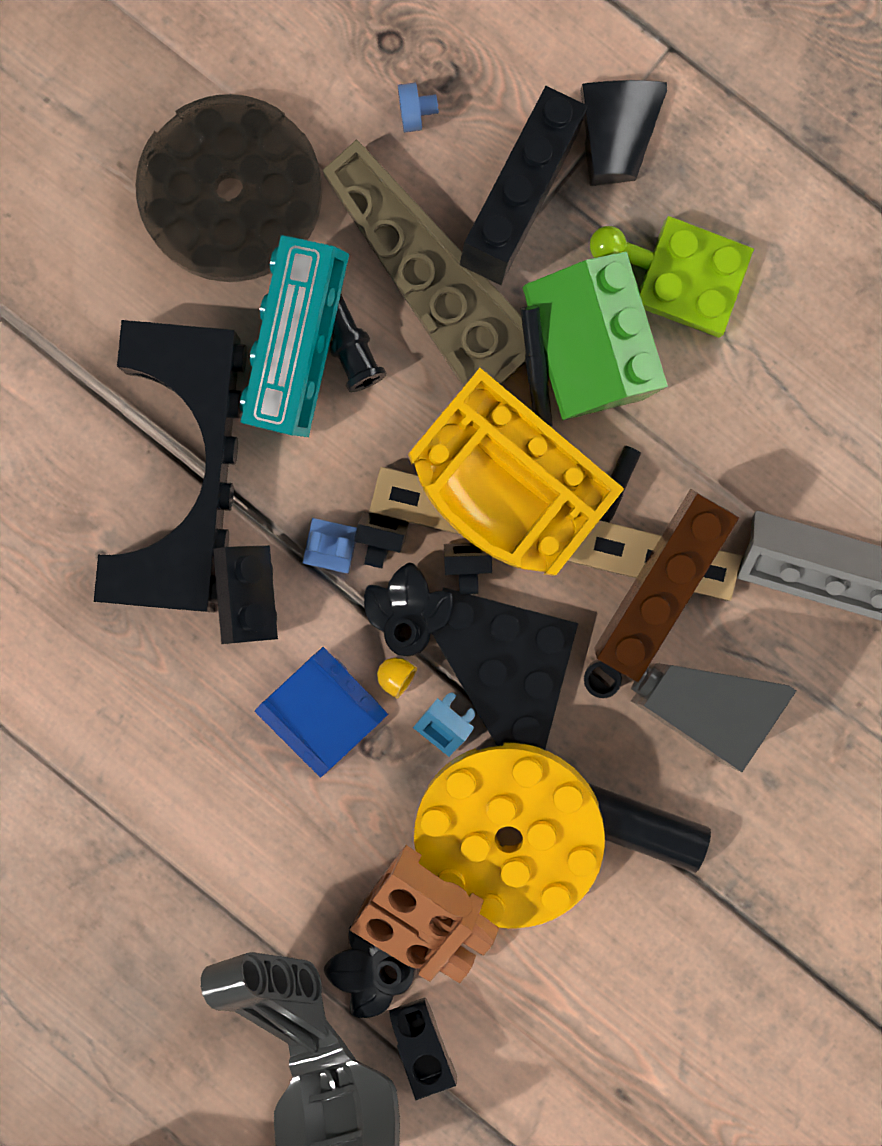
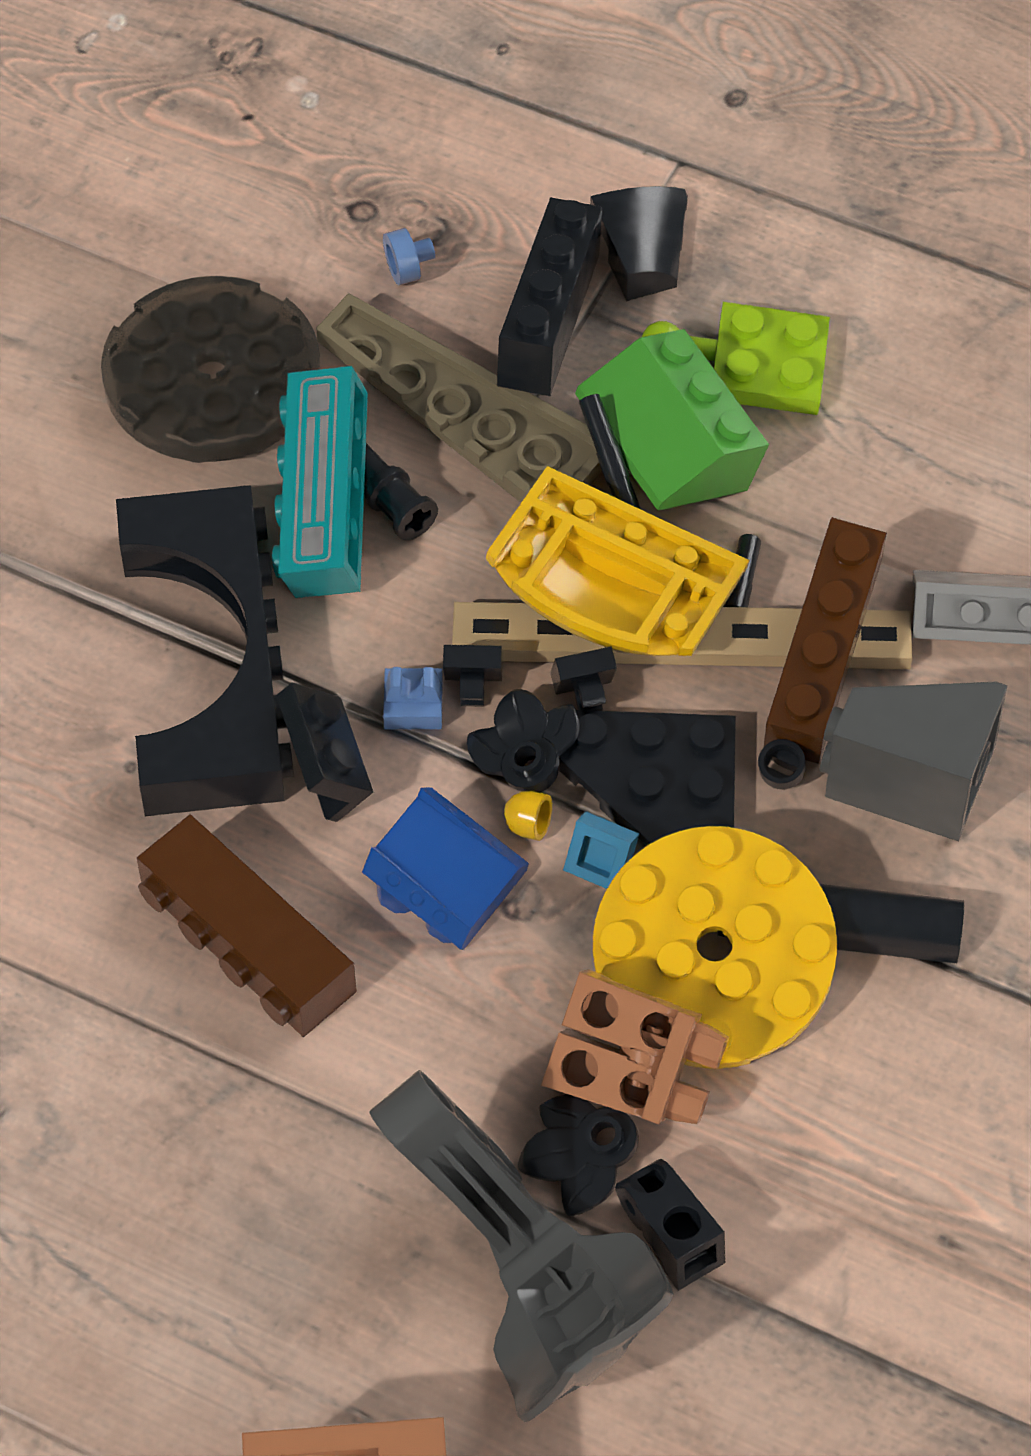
camera: 10 degrees left, 30 degrees down
(157, 731) = (245, 926): none -> reddish brown brick

